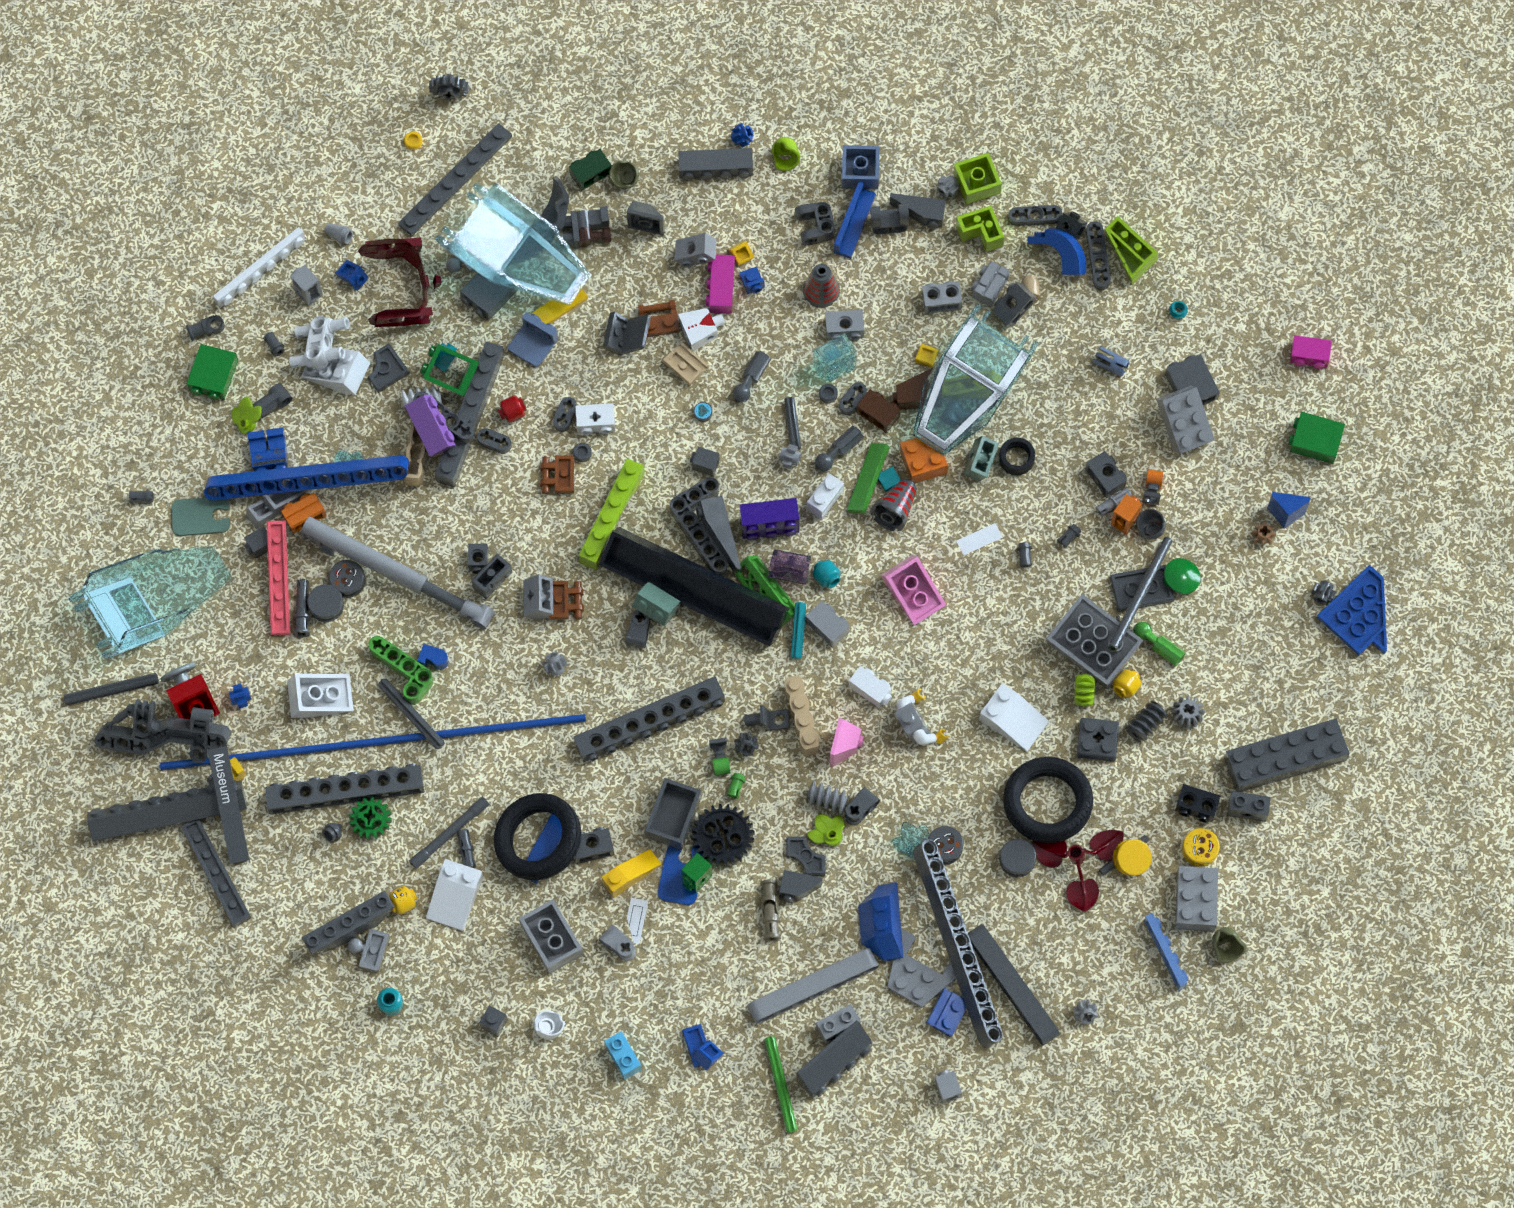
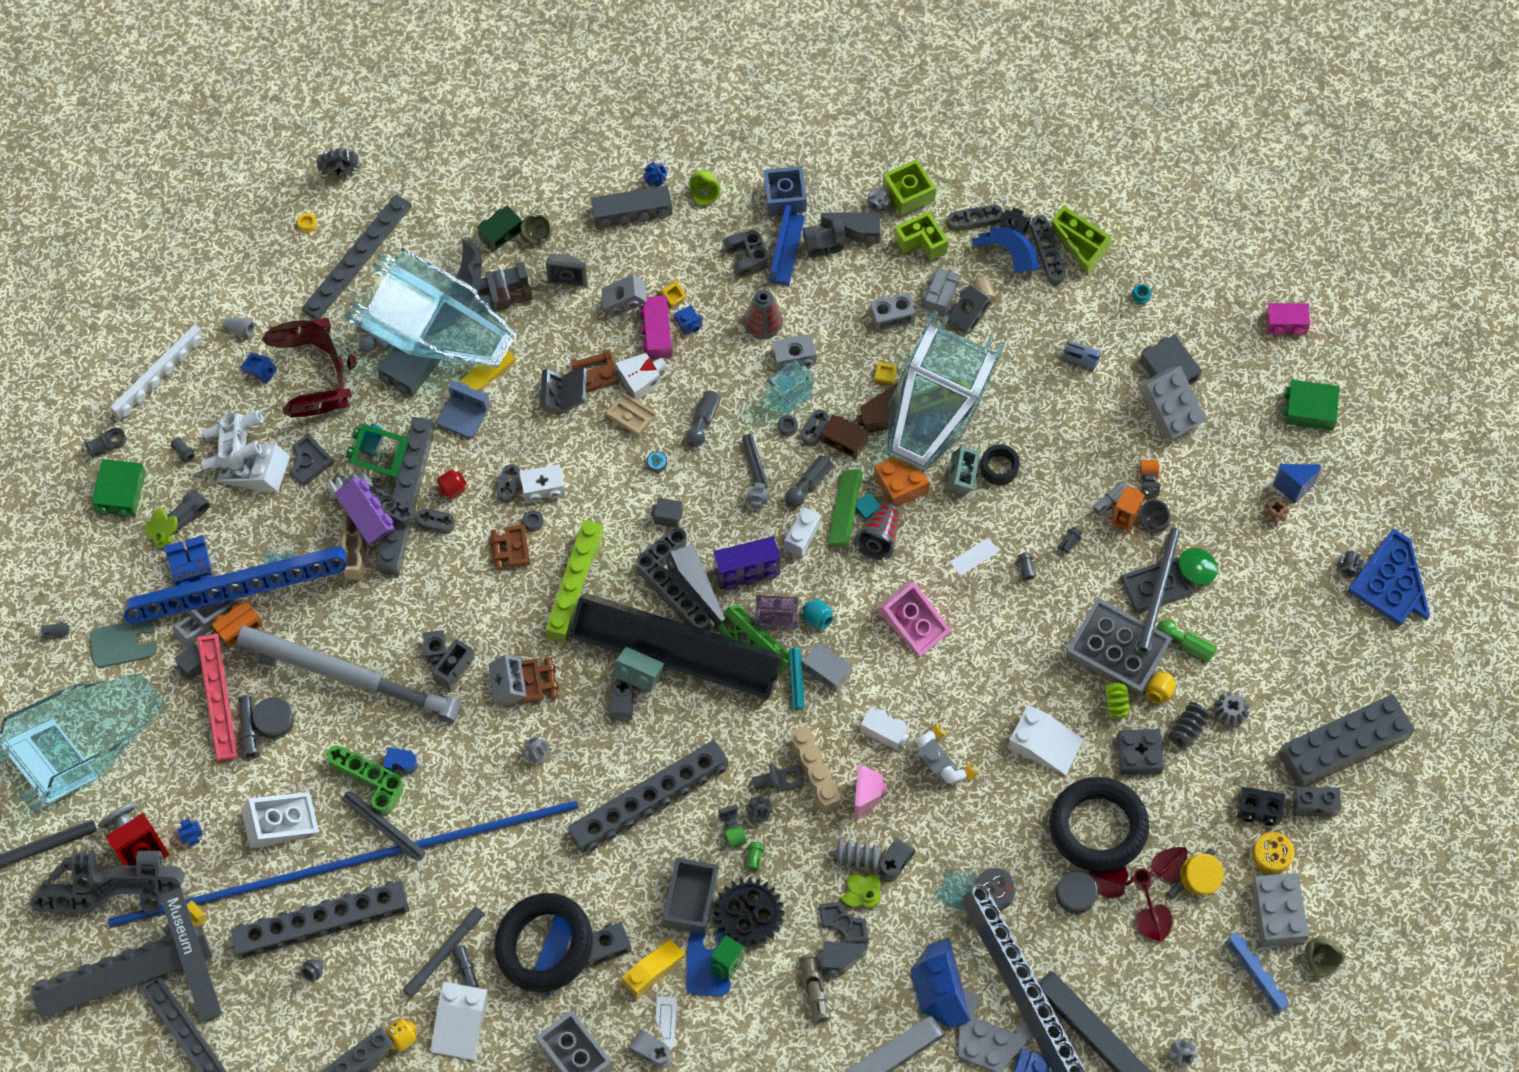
camera: 10 degrees left, 5 degrees down
(306, 285) = (210, 383): light grey brick -> none
(347, 578) = (294, 687): dark grey head -> none
(378, 819) = (361, 948): green gear -> none
(1106, 463) = (1099, 481): dark grey brick -> none

